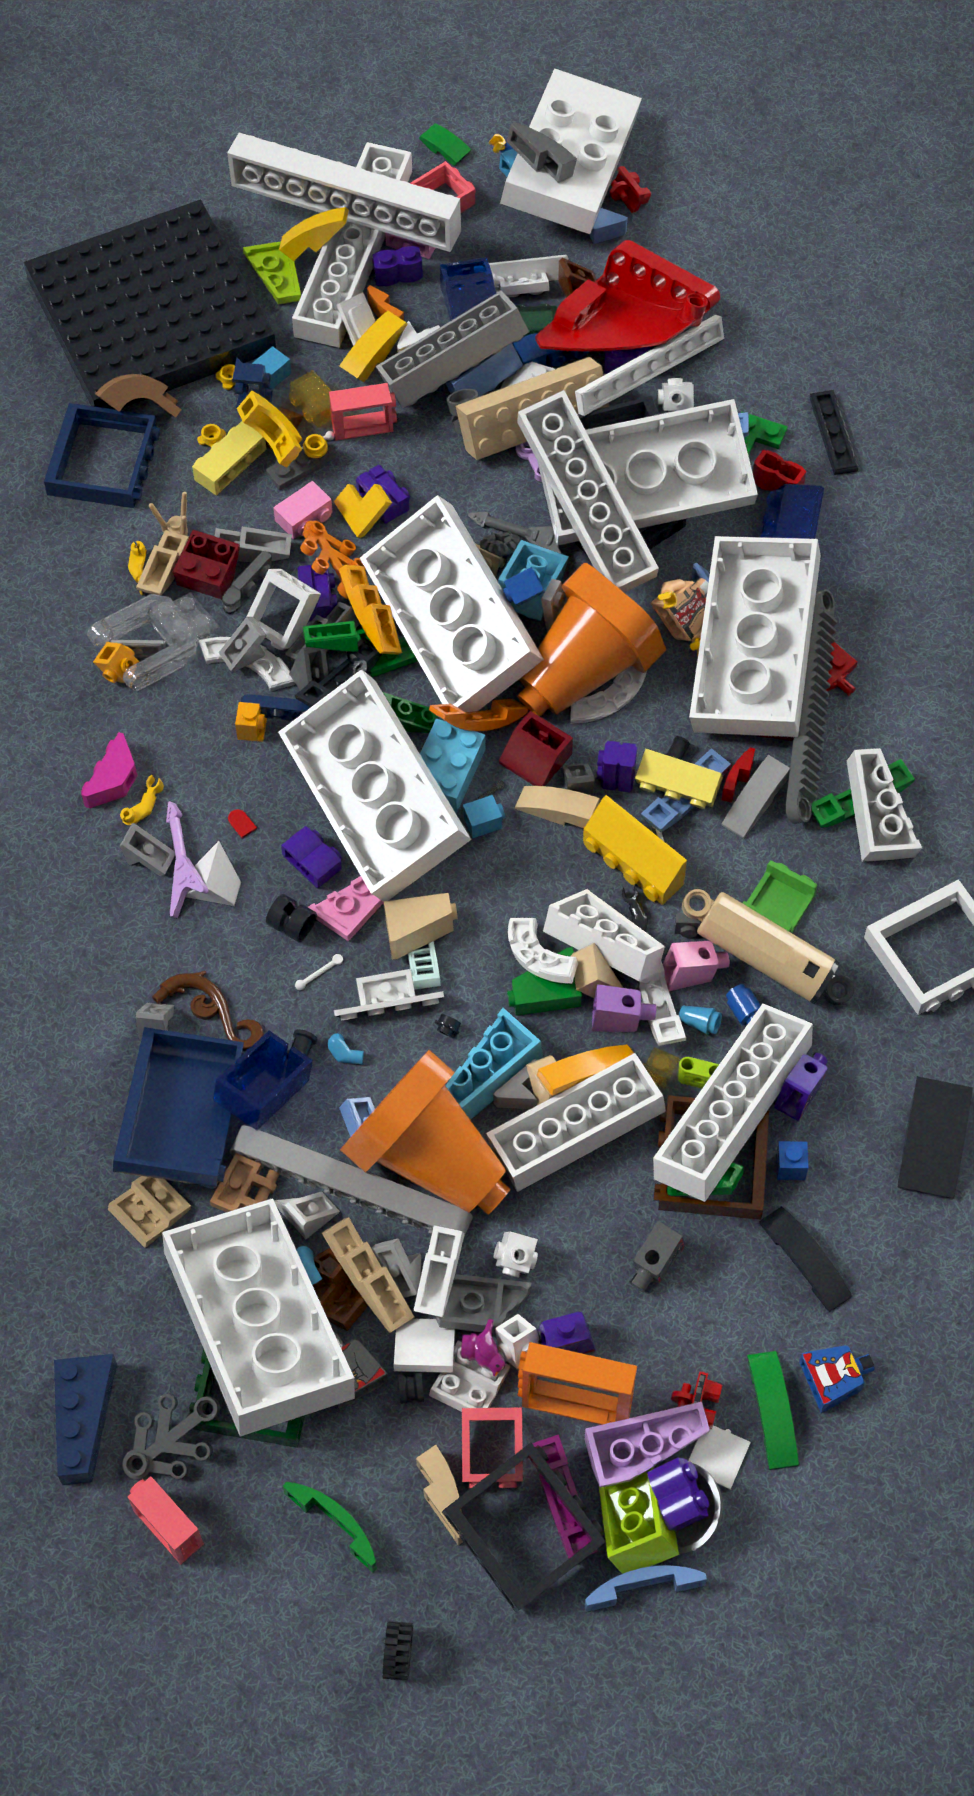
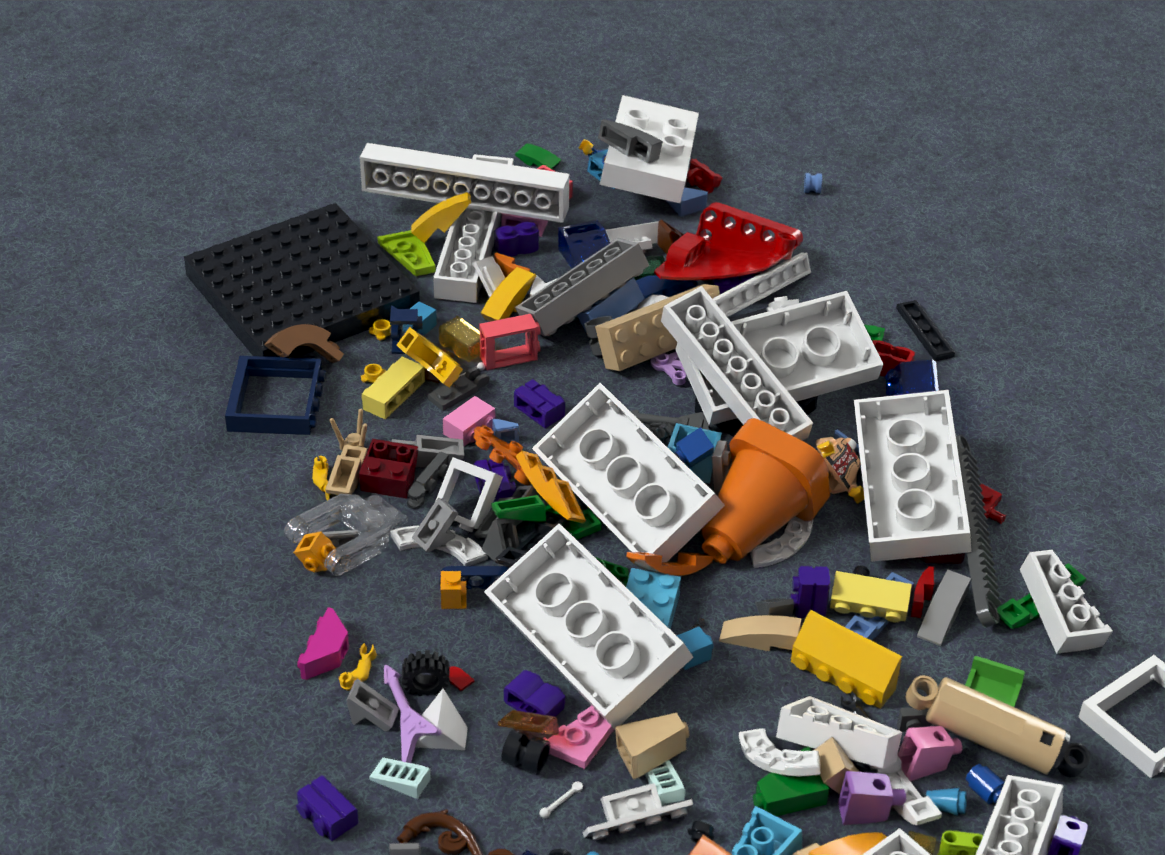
camera: 10 degrees left, 20 degrees down
(88, 958) = (326, 808): none -> dark purple brick
(176, 945) = (405, 786): none -> light aqua slope
(205, 819) = (425, 663): none -> black tyre
(299, 888) = (530, 722): none -> clear orange slope
(315, 441) = (472, 370): yellow plate -> none
(339, 527) = (505, 430): none -> medium blue slope
(362, 512) = (528, 416): yellow tile -> none
(536, 750) = (730, 587): dark red slope -> none
(755, 210) = (813, 183): none -> medium blue wheel

